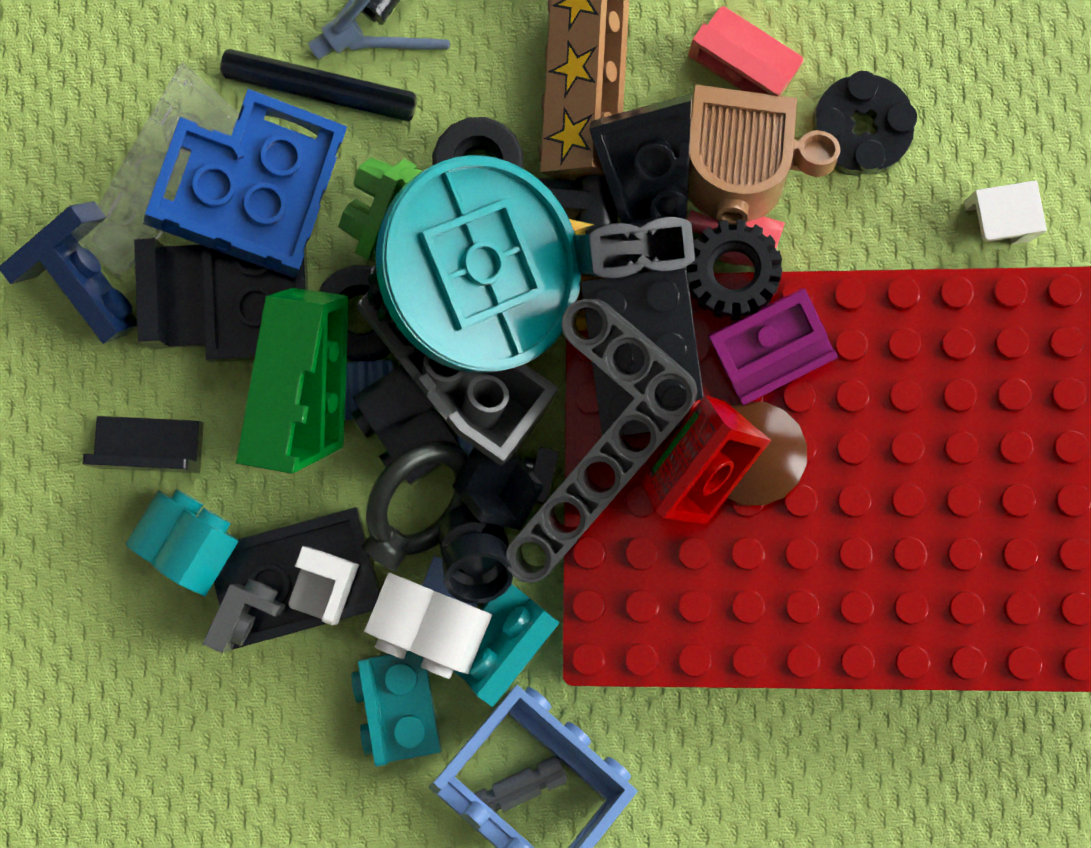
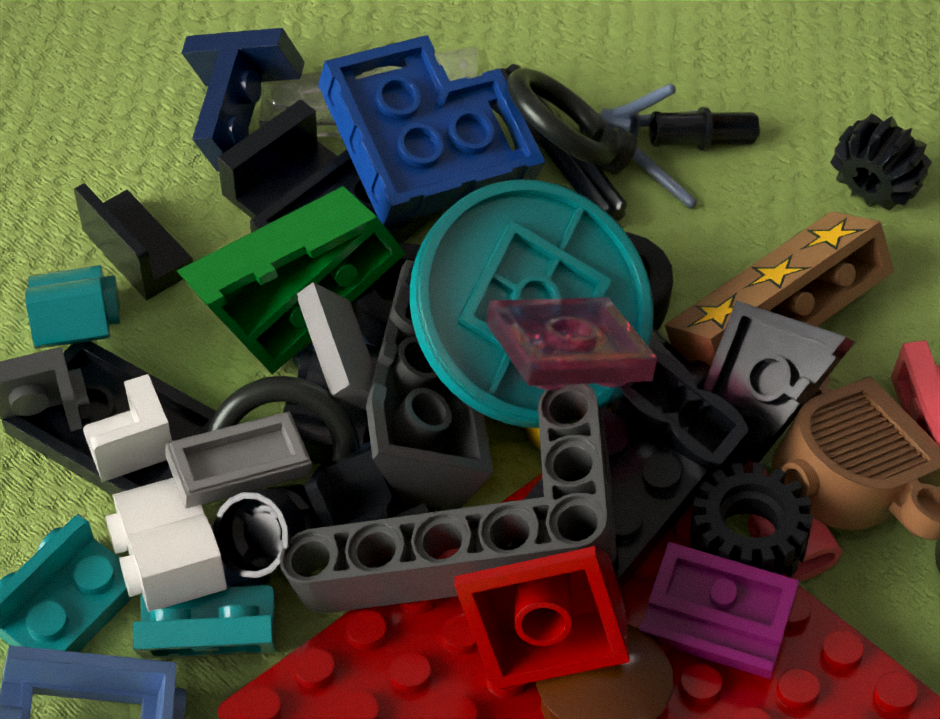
camera: 45 degrees right, 30 degrees down
(360, 59) = (605, 146): none -> pearl dark grey piece
(386, 405) = (338, 344): none -> light grey tile
(418, 541) = (237, 459): none -> light grey tile
(546, 282) = (570, 342): none -> clear pink plate

